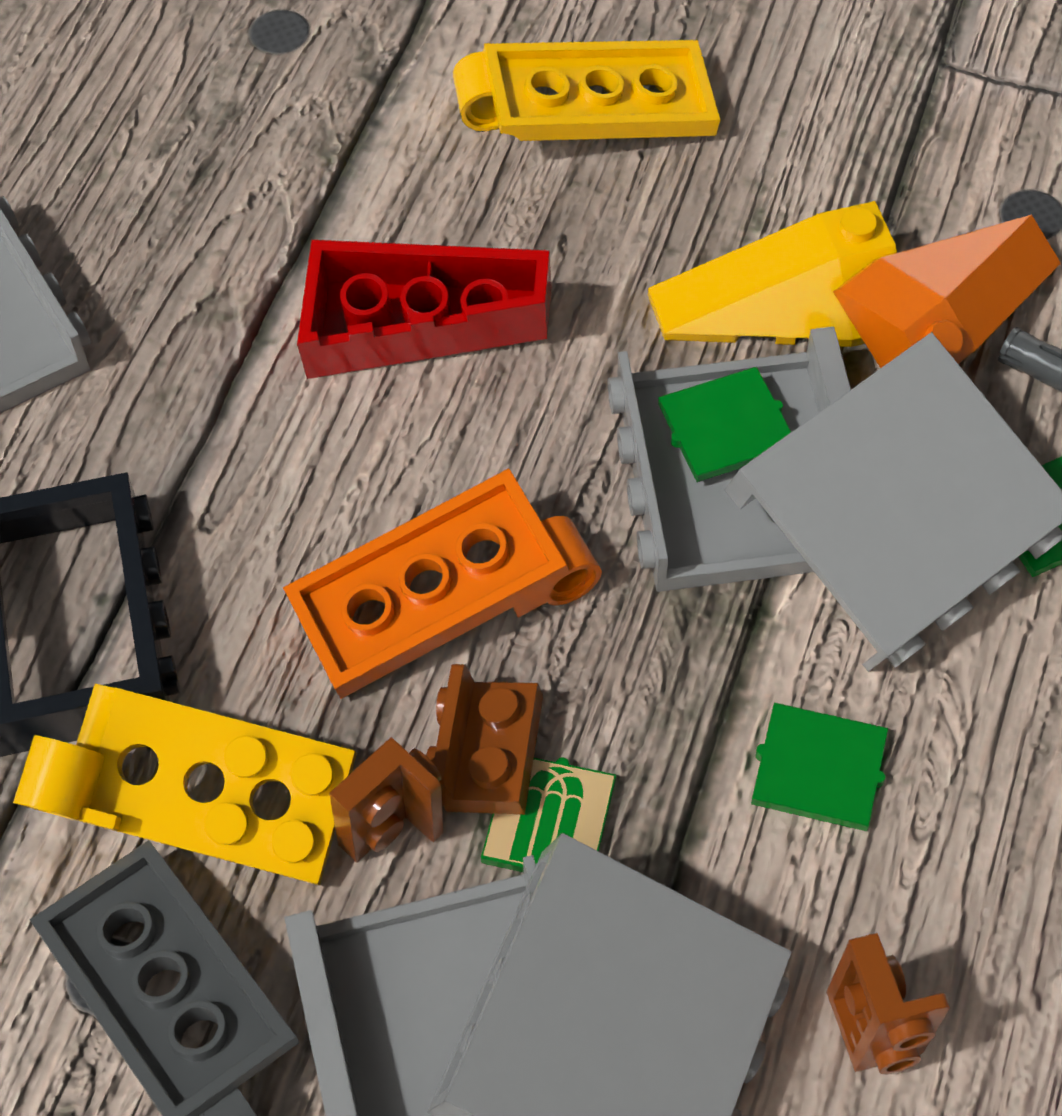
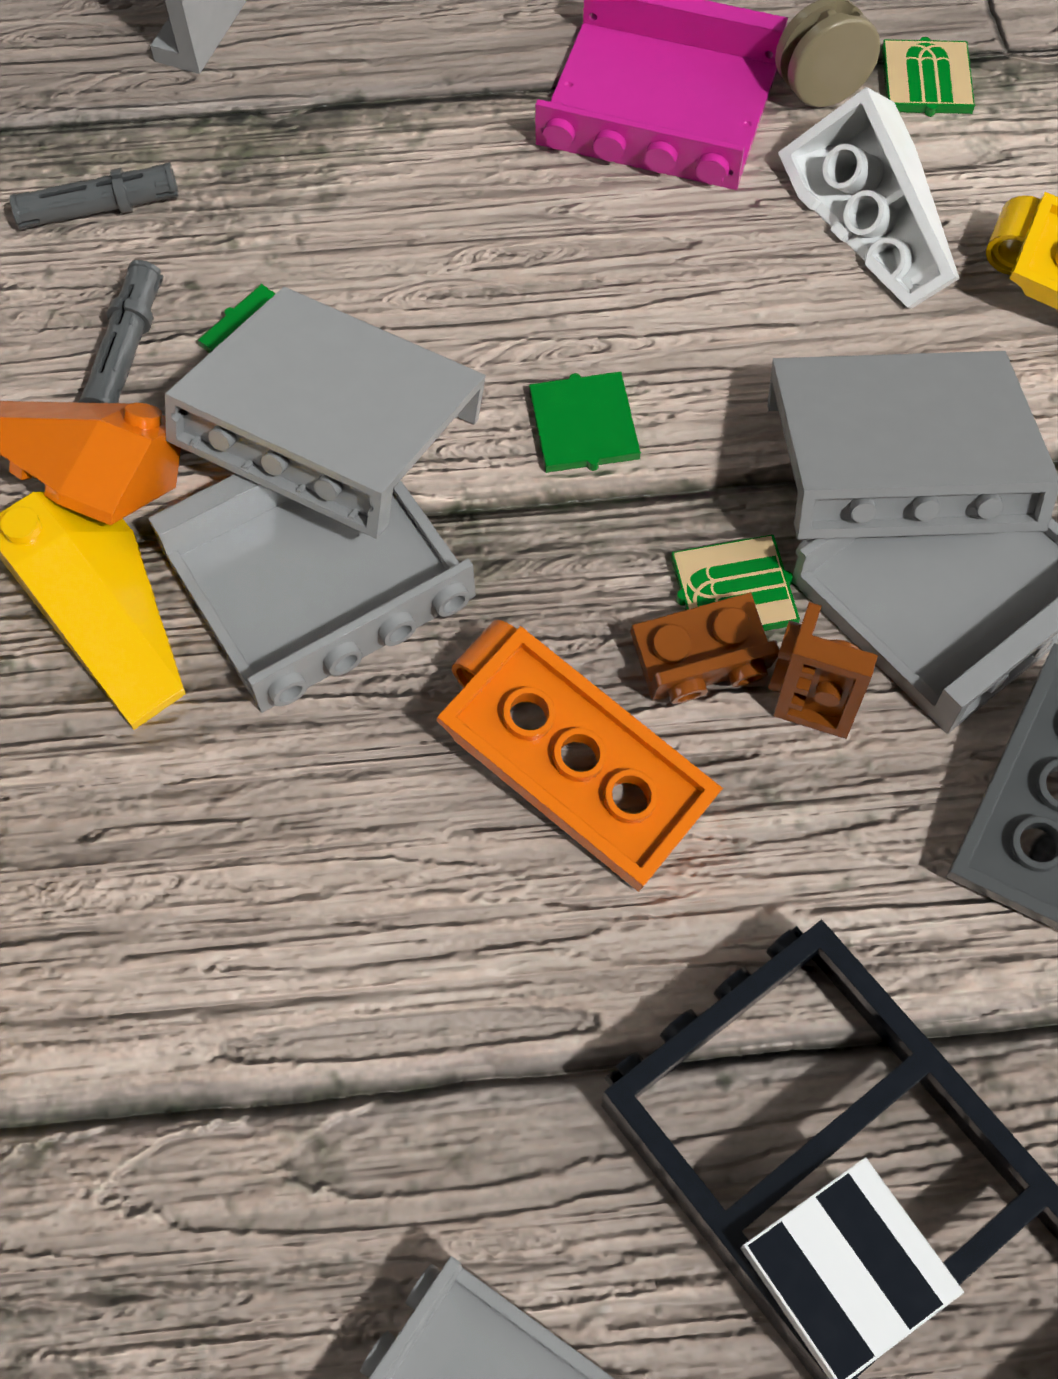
camera: 115 degrees left, 5 degrees up
(90, 787) = (950, 925): yellow hinge -> none
(417, 302) = (263, 935): red wedge -> none
(724, 422) = (282, 586): green piece -> none
(871, 1010) = (786, 291): dark orange bracket -> none

